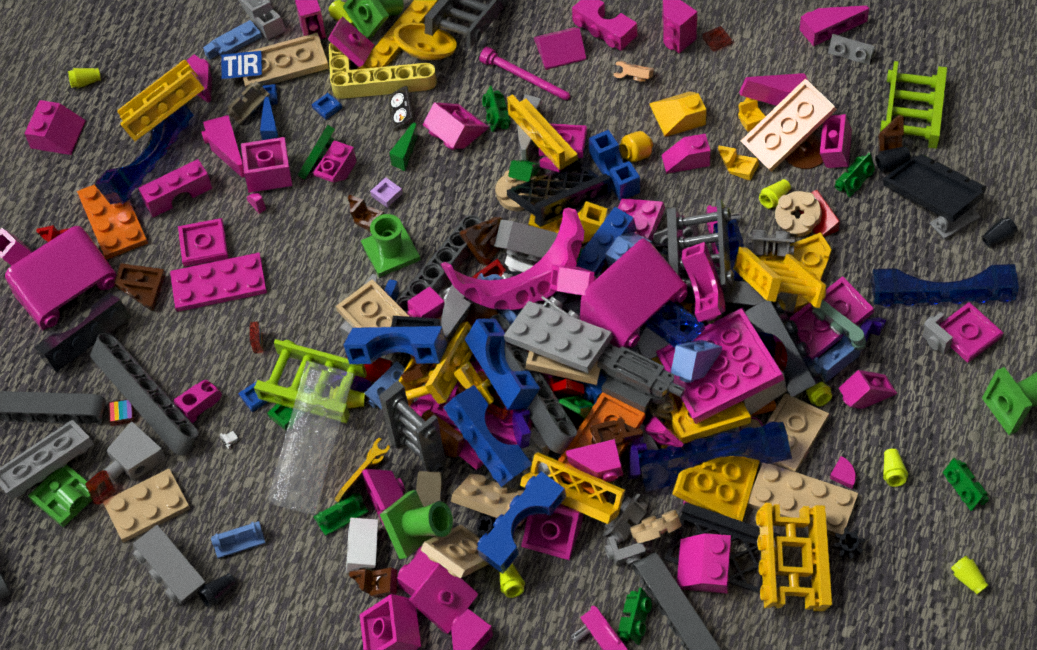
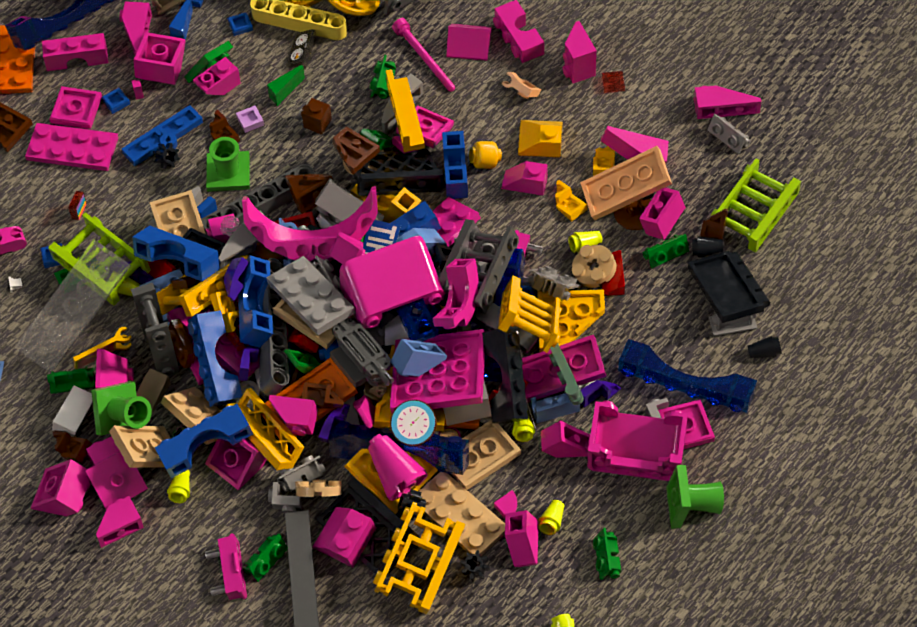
camera: 20 degrees right, 0 degrees up
(239, 221) = (115, 100): none -> blue tile
(307, 239) = (164, 133): none -> blue hinge
(322, 256) = (170, 159): none -> black gear
(435, 294) = (229, 221): none -> clear plate
(452, 166) = (316, 115): none -> reddish brown brick
(453, 125) = (338, 79): dark pink slope -> none
(466, 346) = (232, 275): none -> dark purple slope
(514, 182) = (354, 149): none -> reddish brown wing
(594, 256) = (380, 235): none -> blue sticker
(724, 424) = (413, 422): none -> piece
(726, 475) = (394, 467): none -> dark pink cone
(752, 504) = (409, 498): none -> black gear
(880, 499) = (522, 538): none -> dark pink slope
(941, 364) = (636, 442): none -> dark pink windscreen

